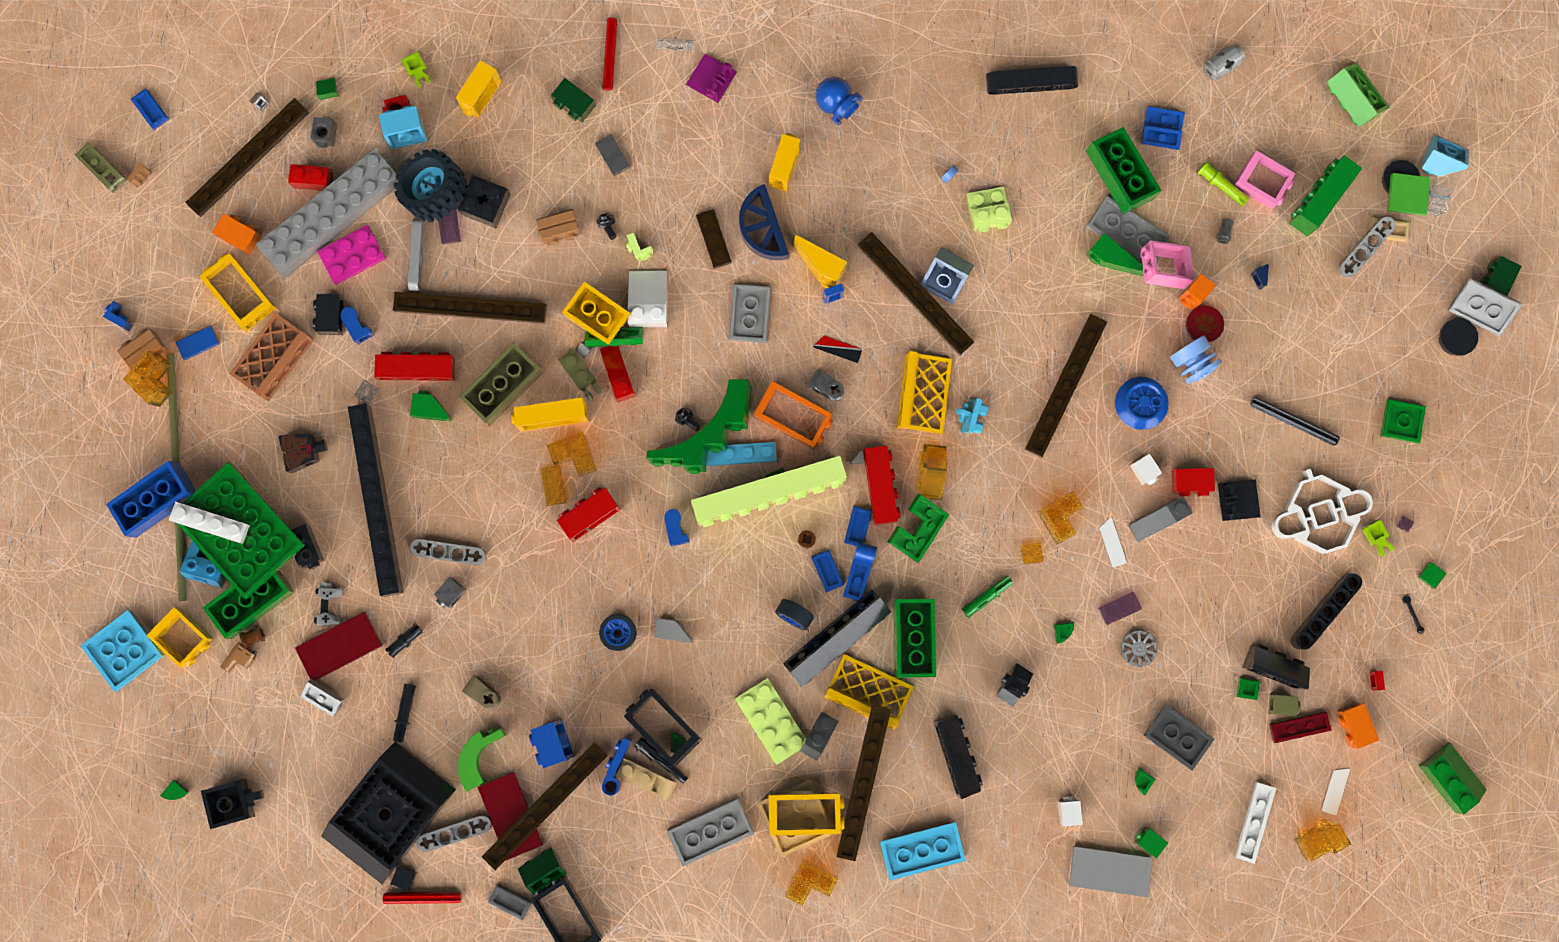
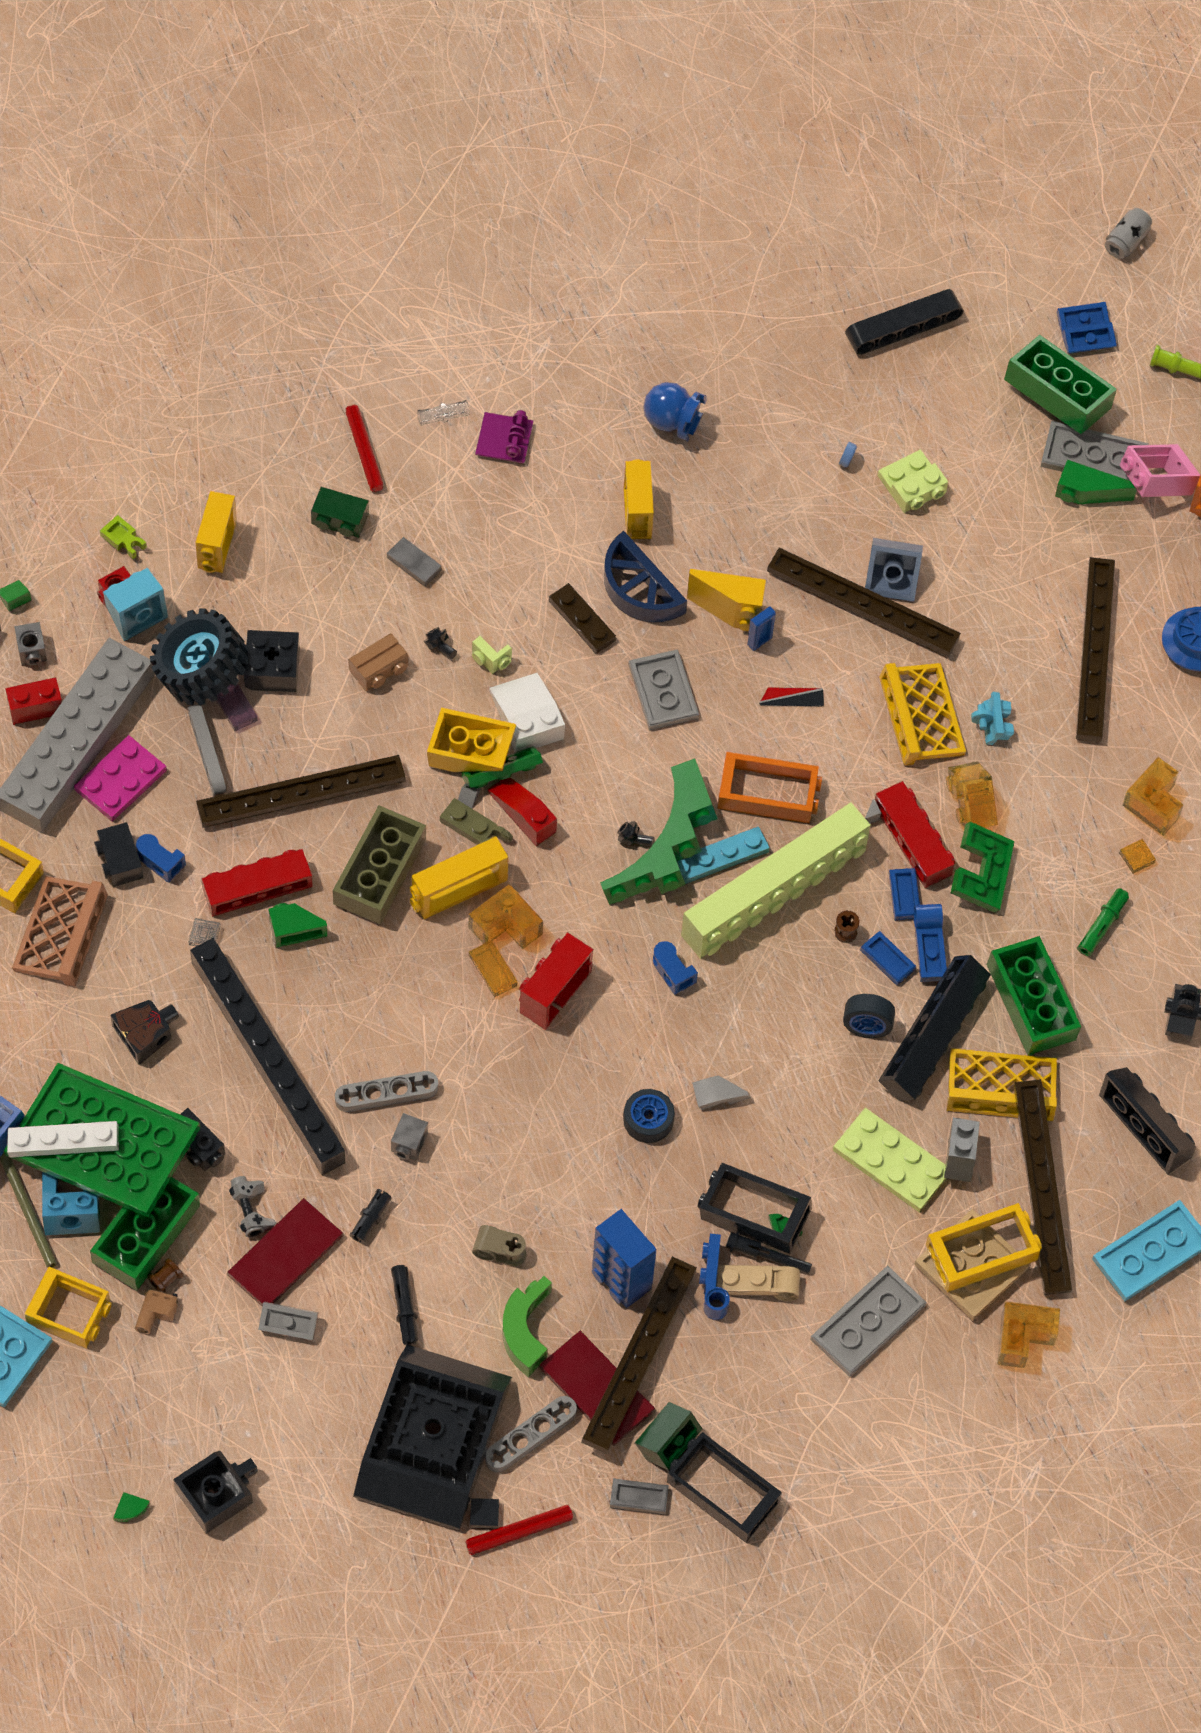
camera: 20 degrees left, 20 degrees down
(823, 383) = (796, 740): flat silver piece -> none

